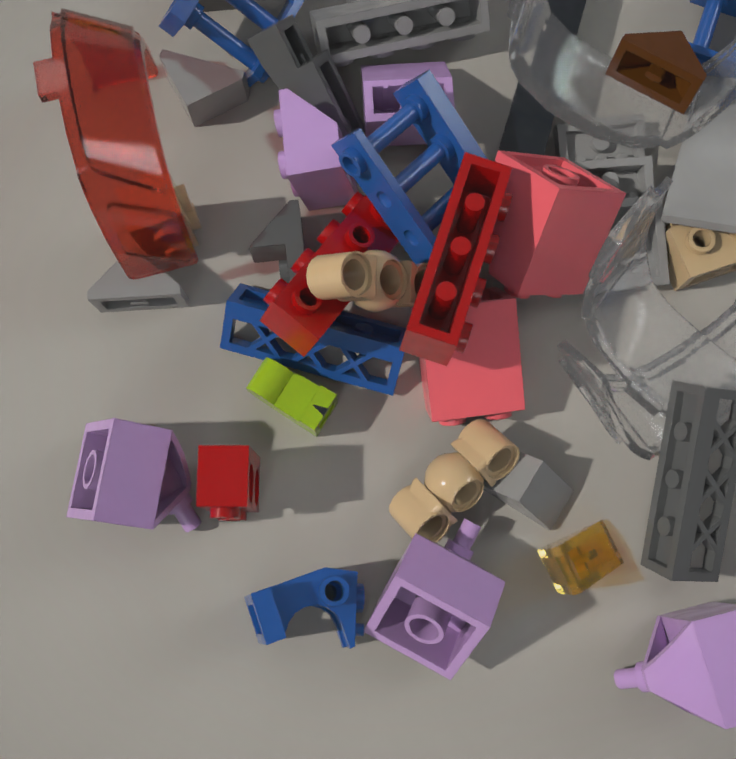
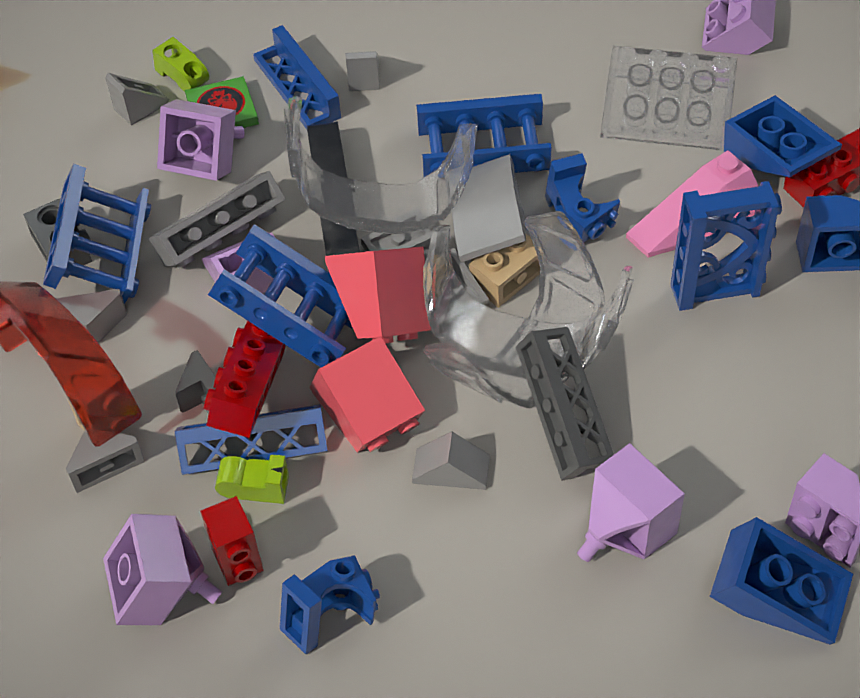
camera: 20 degrees left, 25 degrees down
(308, 154) = (196, 316): lavender slope -> none
(311, 77) = (168, 277): dark grey slope -> none
(369, 279) = (276, 361): tan piece -> none
(437, 602) = (419, 551): lavender piece -> none
(453, 270) = (326, 318): red brick -> none
(454, 481) = (397, 478): tan piece -> none
(581, 558) = (511, 491): clear yellow slope -> none
(659, 67) = (410, 173): reddish brown slope -> none

